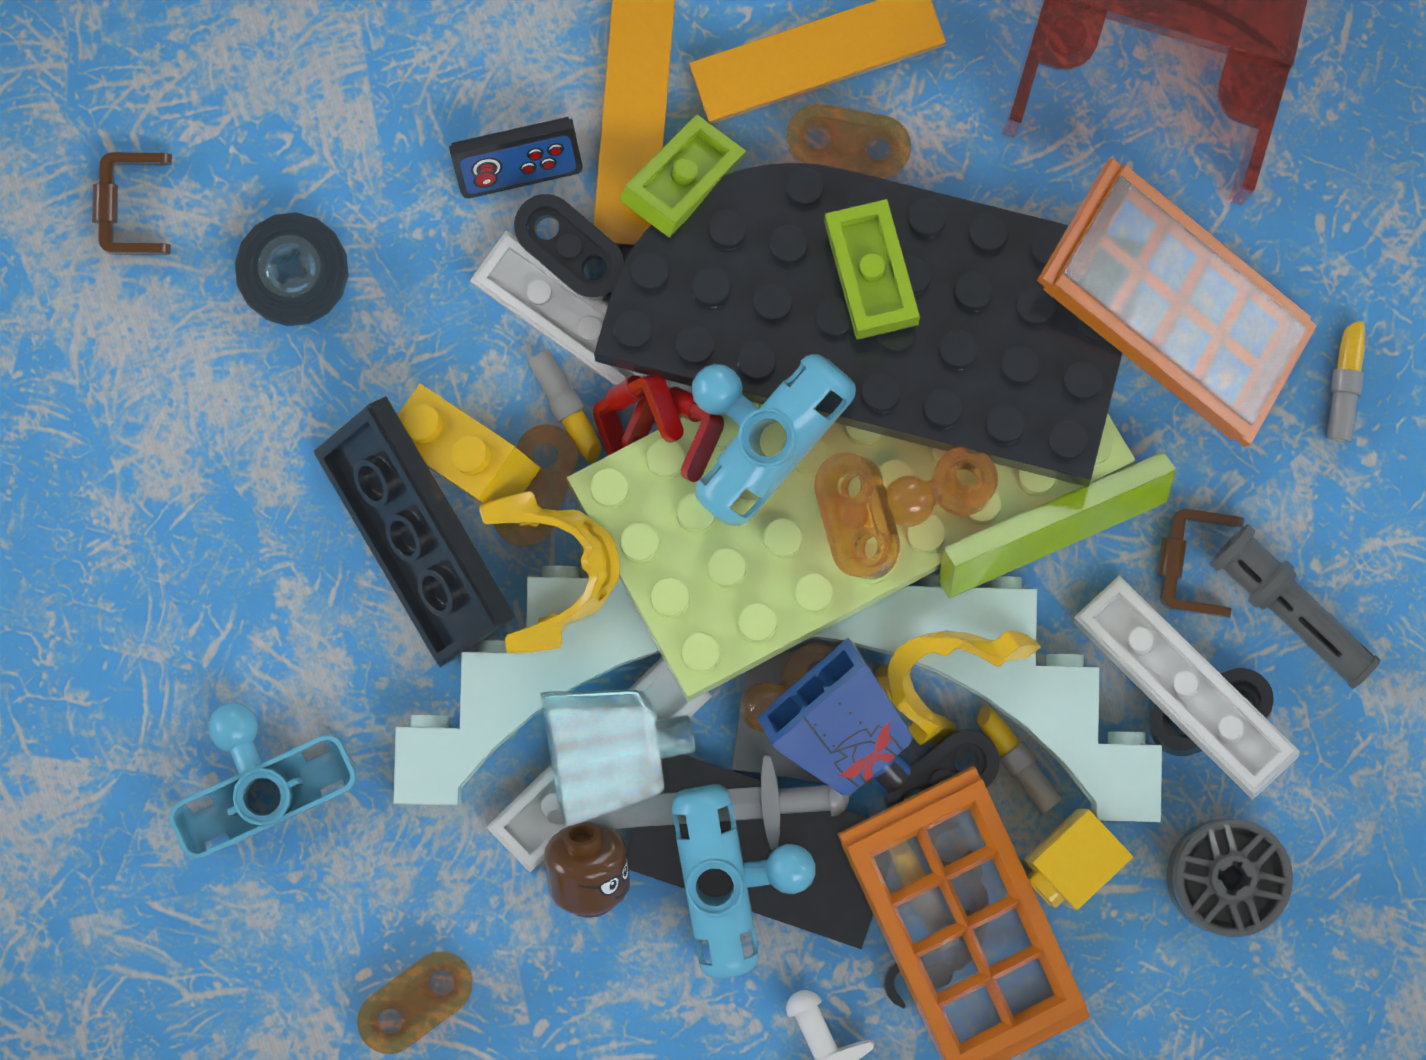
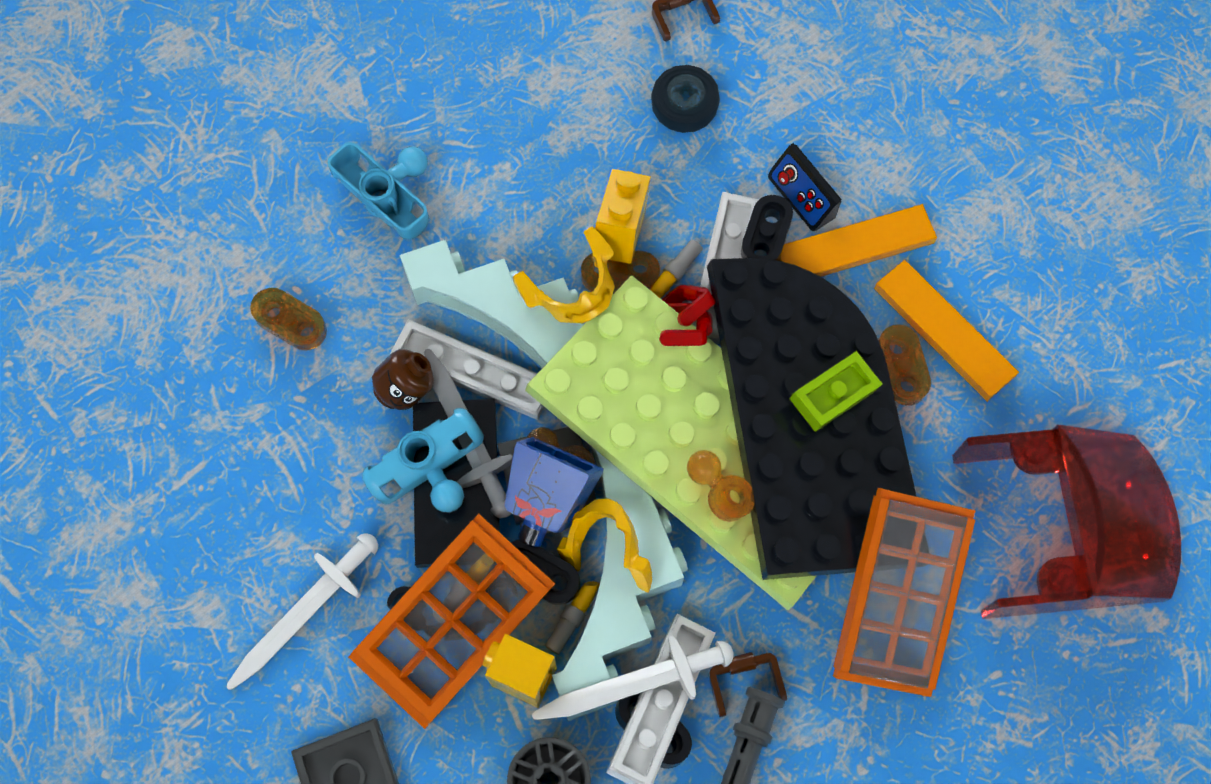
camera: 70 degrees right, 15 degrees down
(413, 532) = (563, 207): black tile -> none
(608, 749) = (478, 358): clear light blue torso -> none
(681, 175) = (838, 274): lime plate -> none
(792, 404) = (718, 383): medium azure piece -> none
(857, 519) = (680, 438): clear orange plate -> none
(1056, 524) = (730, 573): lime tile -> none
(1152, 706) = (677, 668): none -> white sword
(1347, 383) = (903, 732): light grey piece -> none

